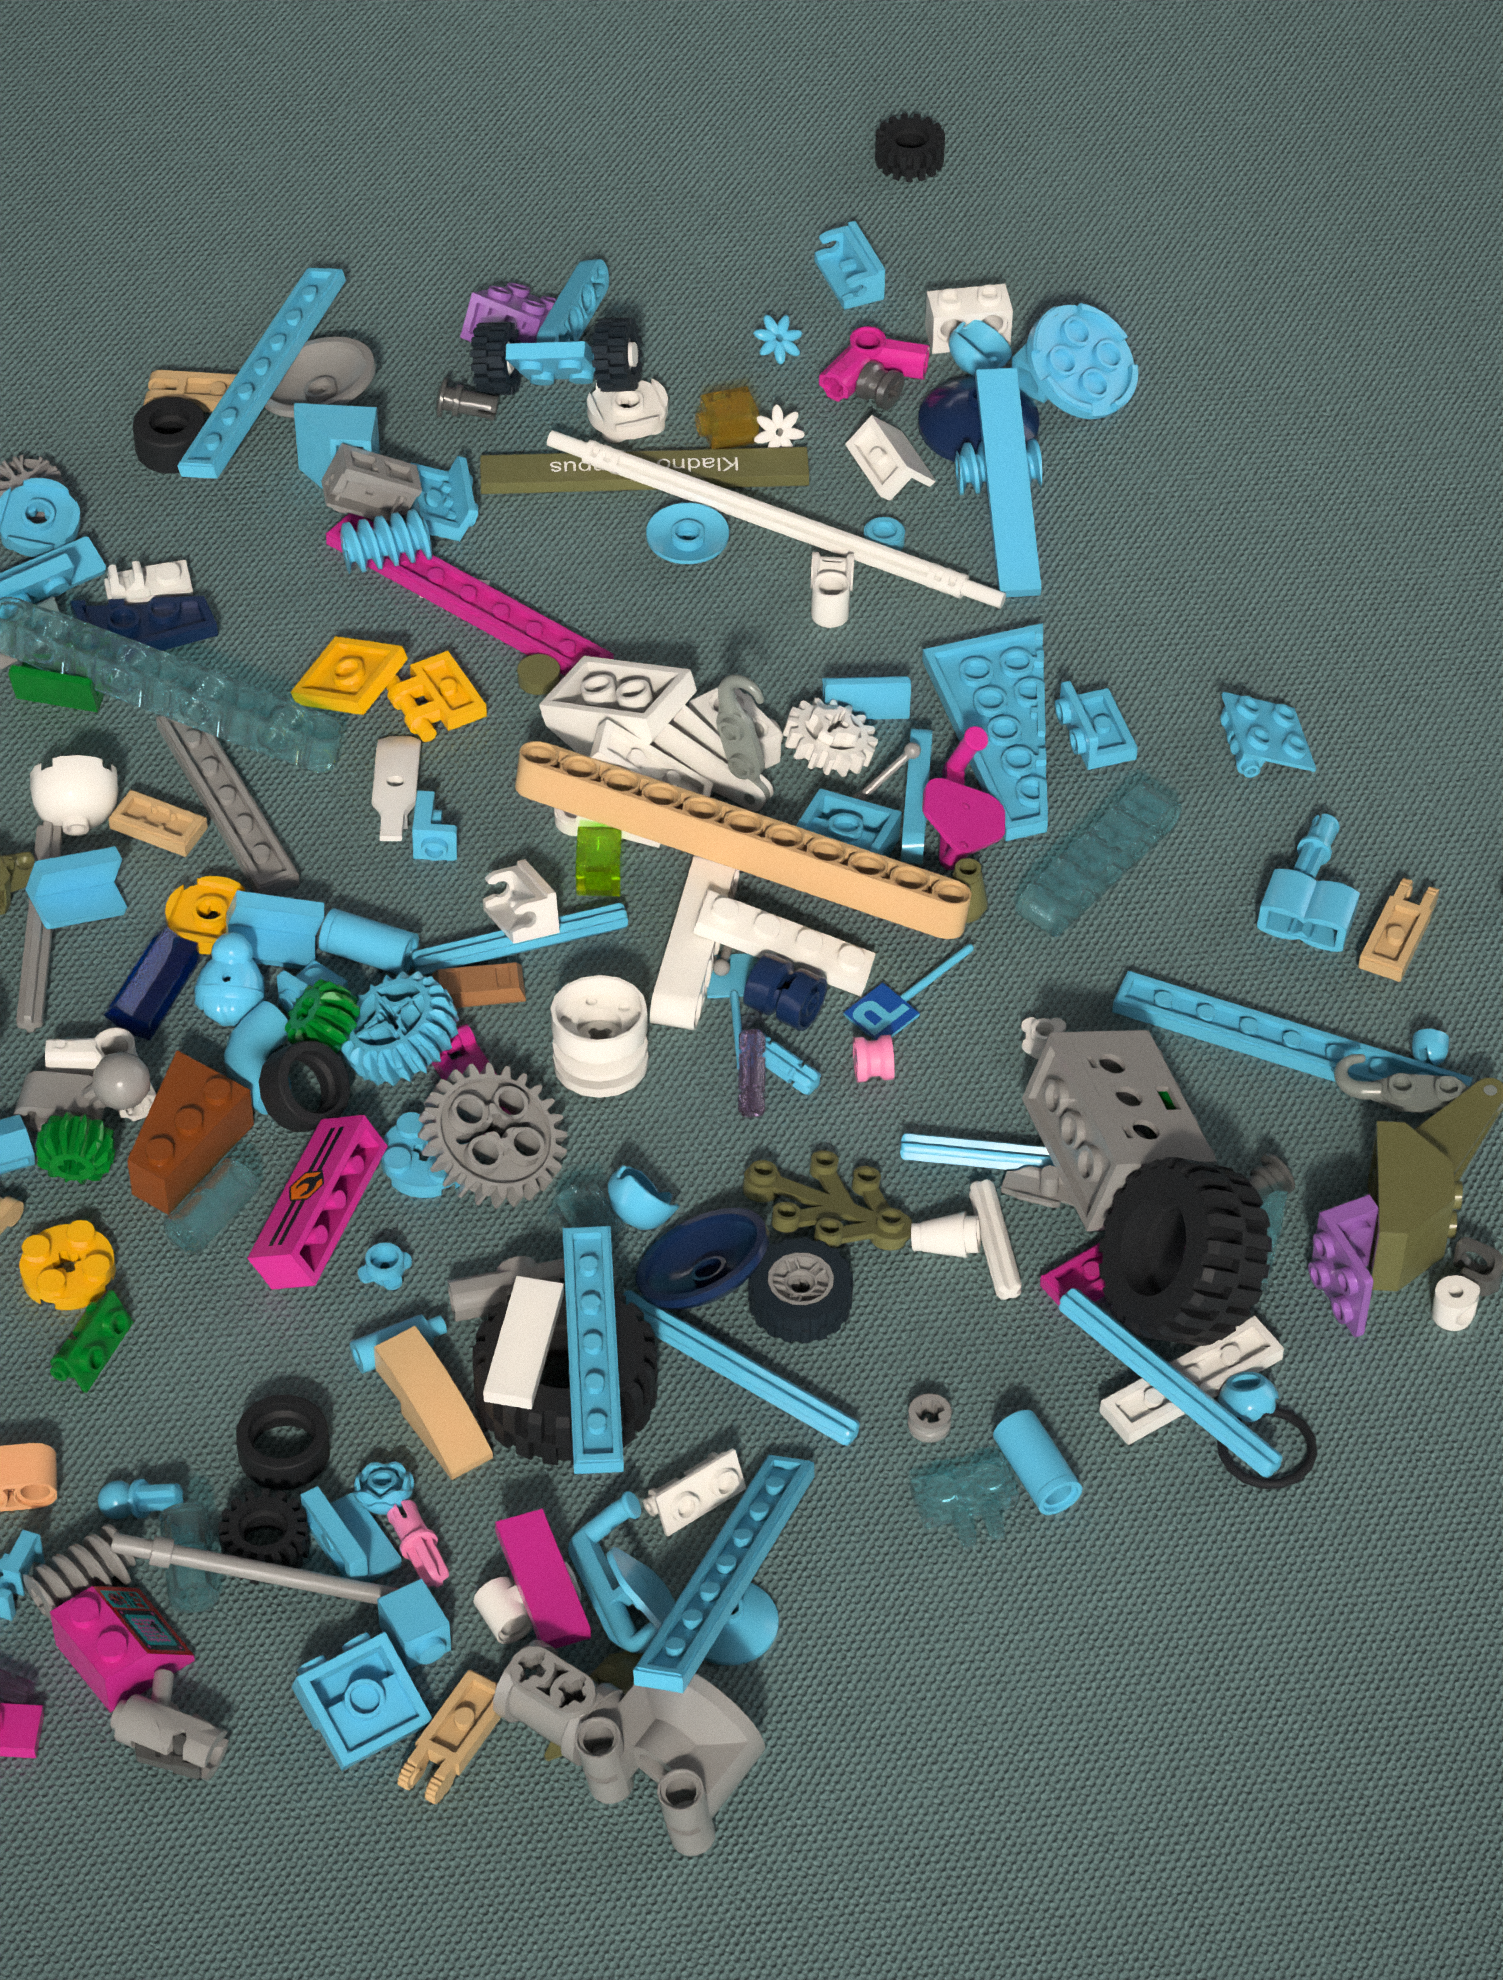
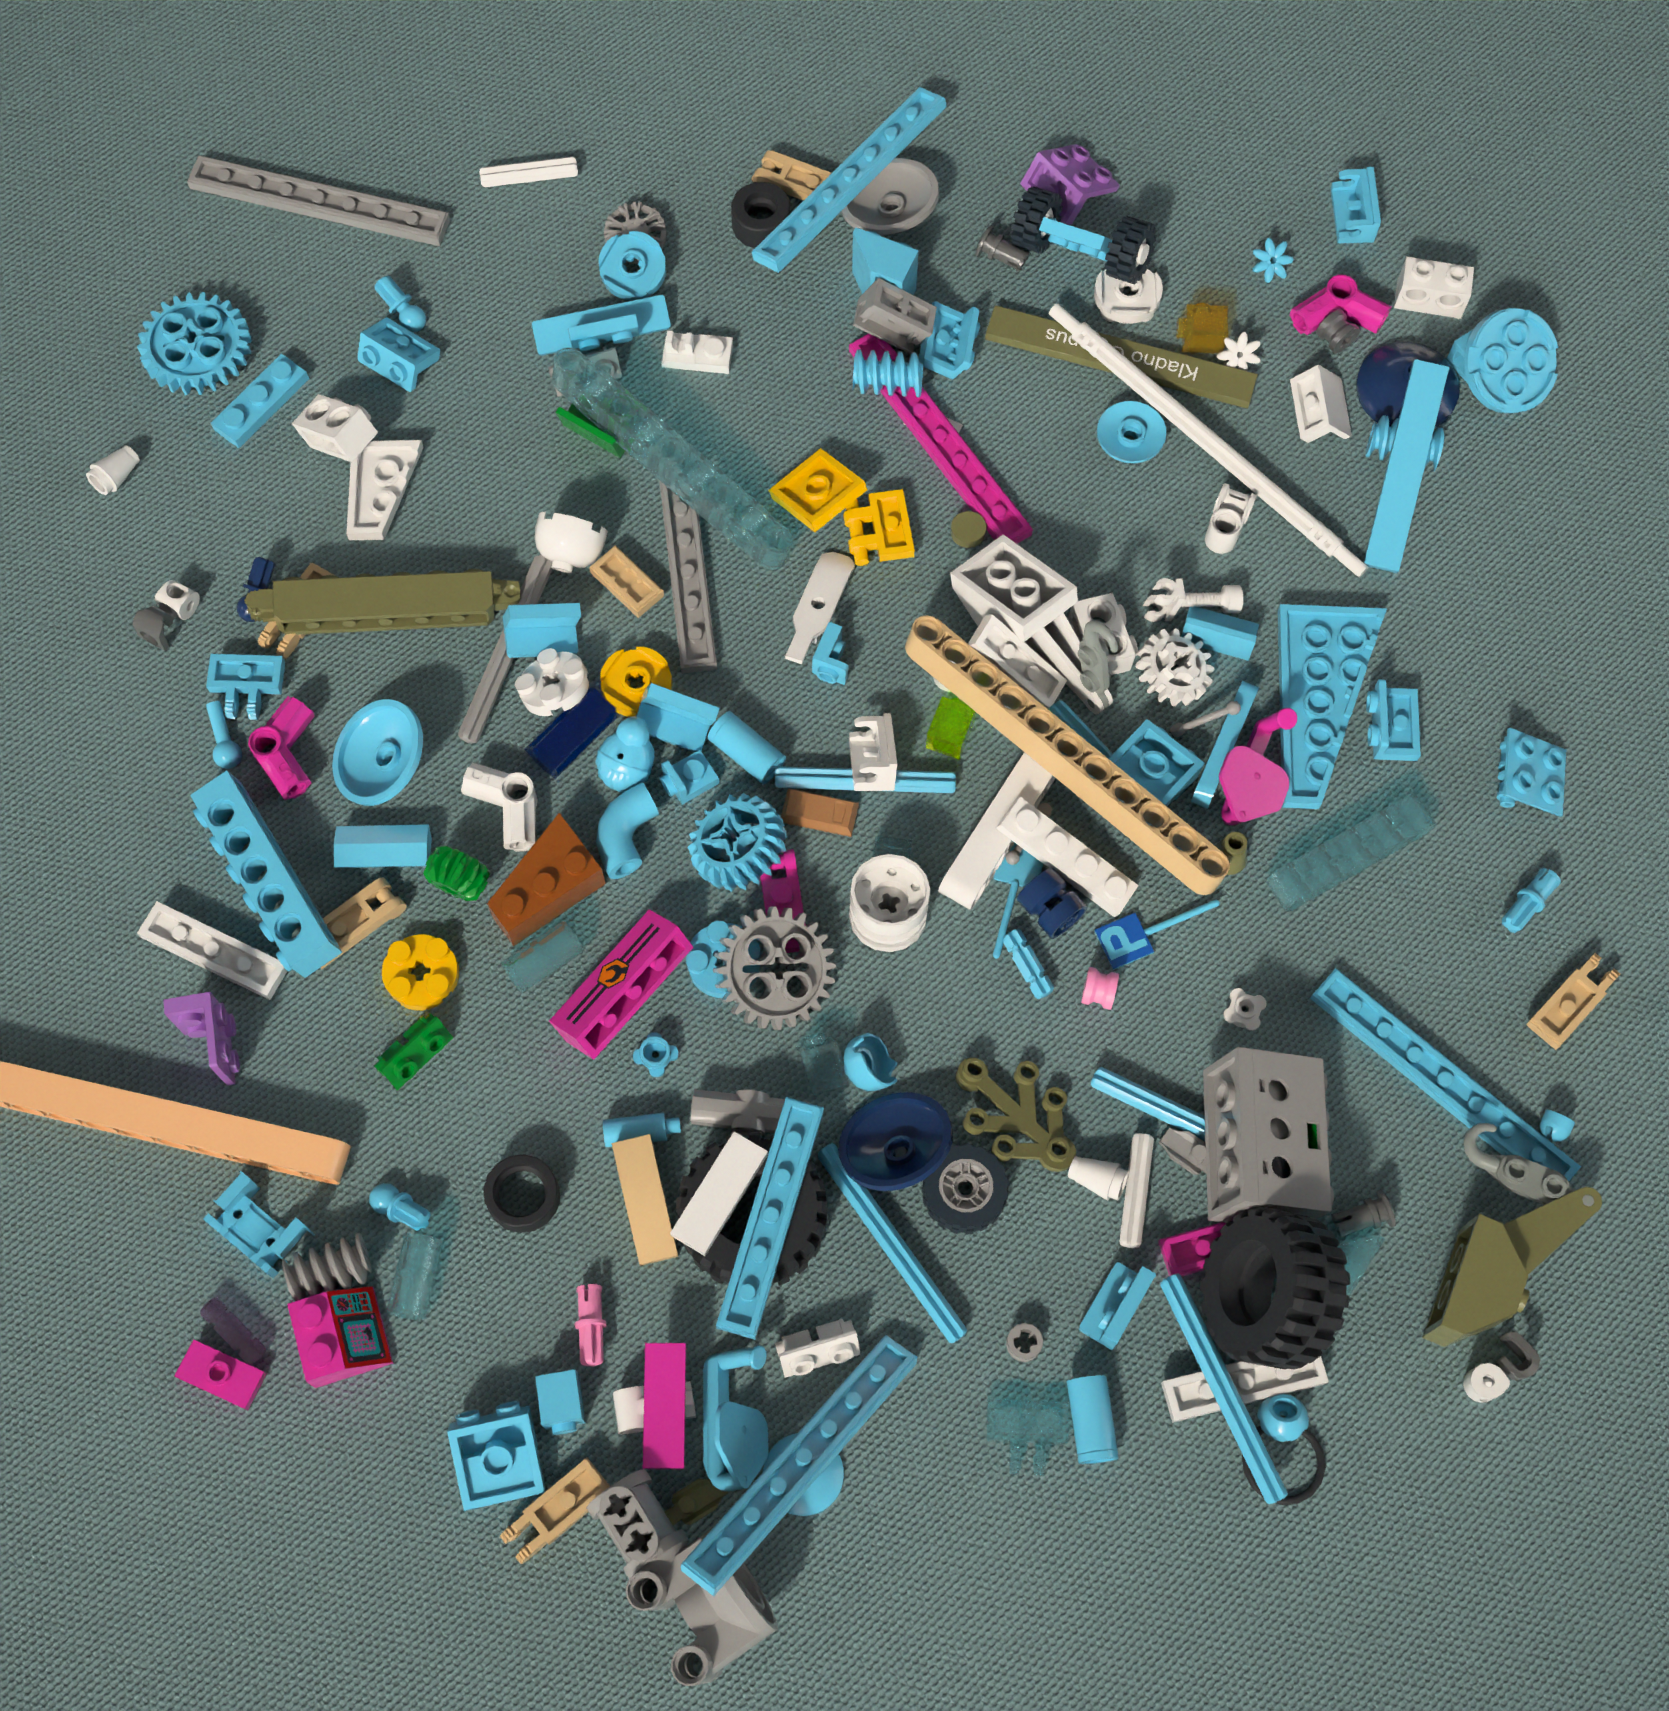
camera: 20 degrees right, 20 degrees up
(112, 937) = (536, 687): none -> white plate
(117, 1082) = (477, 828): light grey beam -> none
(159, 624) = (680, 392): dark blue wing -> none
(163, 1552) = (388, 1281): light grey bar -> none
(166, 1735) = (342, 1434): light grey piece -> none
(260, 1513) = (467, 1254): black tyre -> none
(323, 1015) = (680, 819): green gear -> none
(329, 1073) = (669, 885): black tyre -> none
(349, 1536) = (543, 1297): medium azure panel -> none
(383, 1486) = (581, 1252): medium azure plate -> none
(576, 303) = (1116, 187): medium azure beam -> none
(751, 1073) = (998, 970): clear purple axle -> none
(803, 669) = (1229, 599): none -> white bar
(885, 532) = (1291, 477): medium azure tile -> none
(921, 159) = (1450, 86): black tyre -> none
(978, 347) = (1431, 321): medium azure hair -> none
(1019, 1345) = (1116, 1304): none -> medium azure bracket
(1308, 910) = (1504, 958): medium azure brick -> none
(1340, 1258) = (1396, 1319): medium lavender bracket -> none

